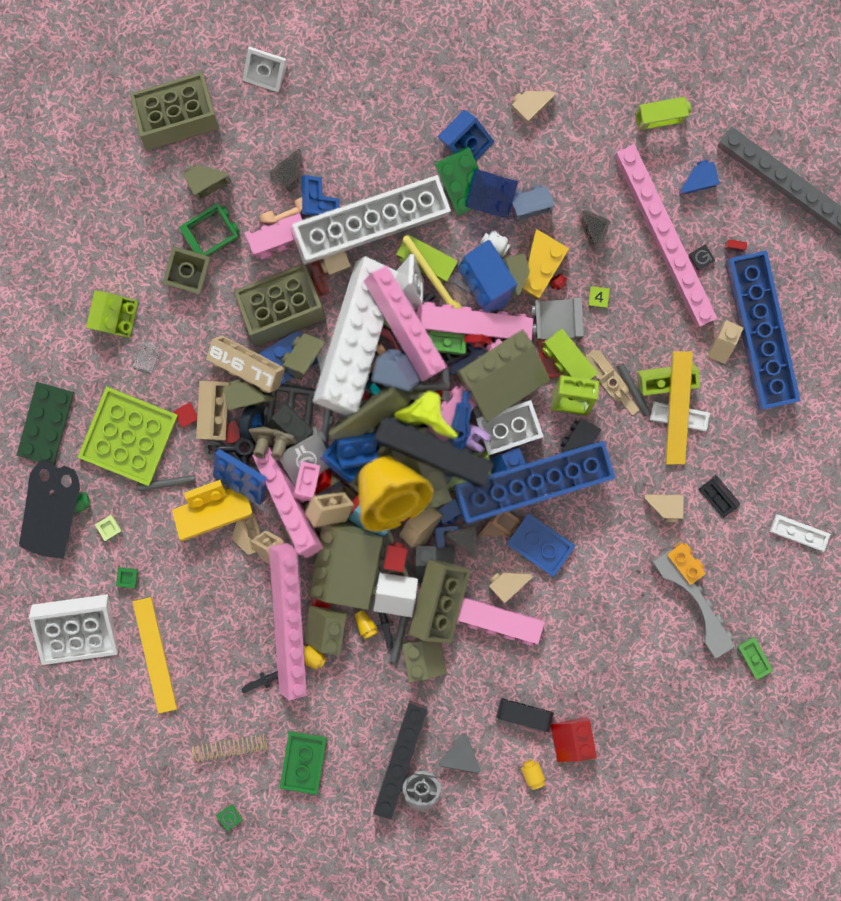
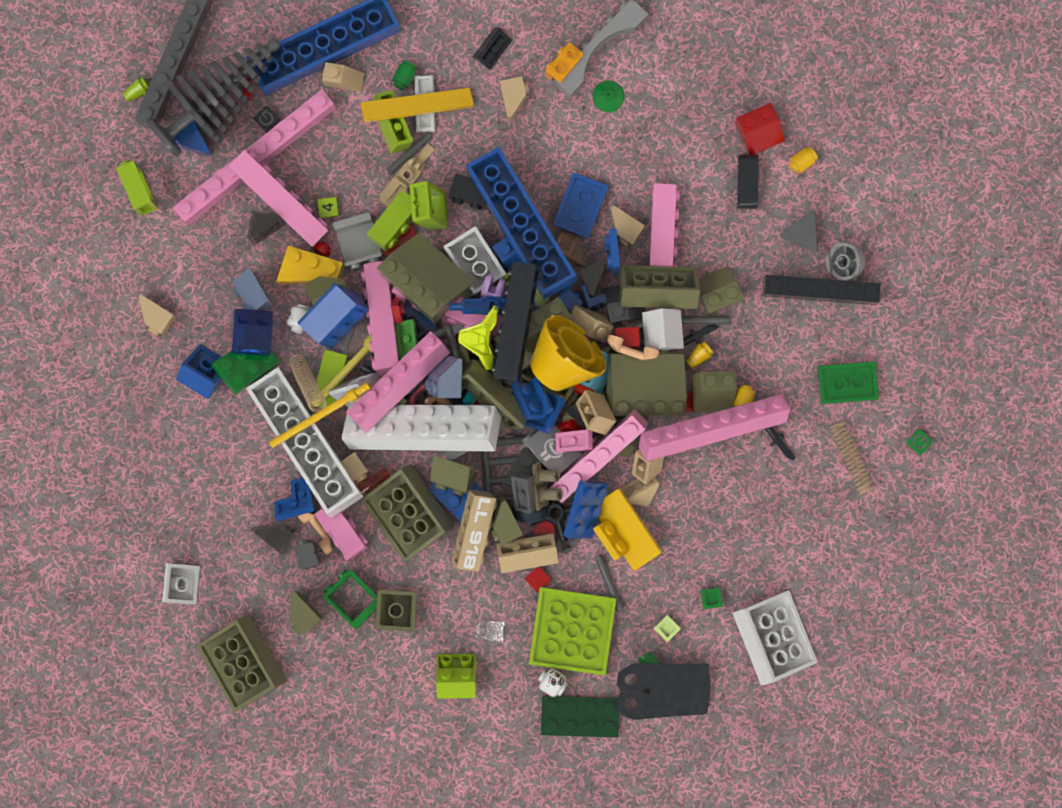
camera: 105 degrees left, 5 degrees down
(83, 405) = (552, 682): none -> white head
(155, 655) = (780, 553): yellow tile -> none
(261, 197) = (307, 554): none -> dark grey brick
(268, 419) = (523, 493): none -> dark grey plate
(373, 573) = (616, 343): none -> light nougat bar
(401, 274) = (351, 395): none -> yellow bar
(427, 228) = (302, 386): none -> tan piece
(491, 566) = (611, 246): none -> blue plate
(618, 249) = (277, 197): none -> bright pink brick
(644, 599) = (608, 96): none -> green piece
(712, 402) = (404, 75): none -> green brick
(733, 205) = (203, 104): none -> dark grey plant
(762, 136) = (136, 89): none -> lime cone

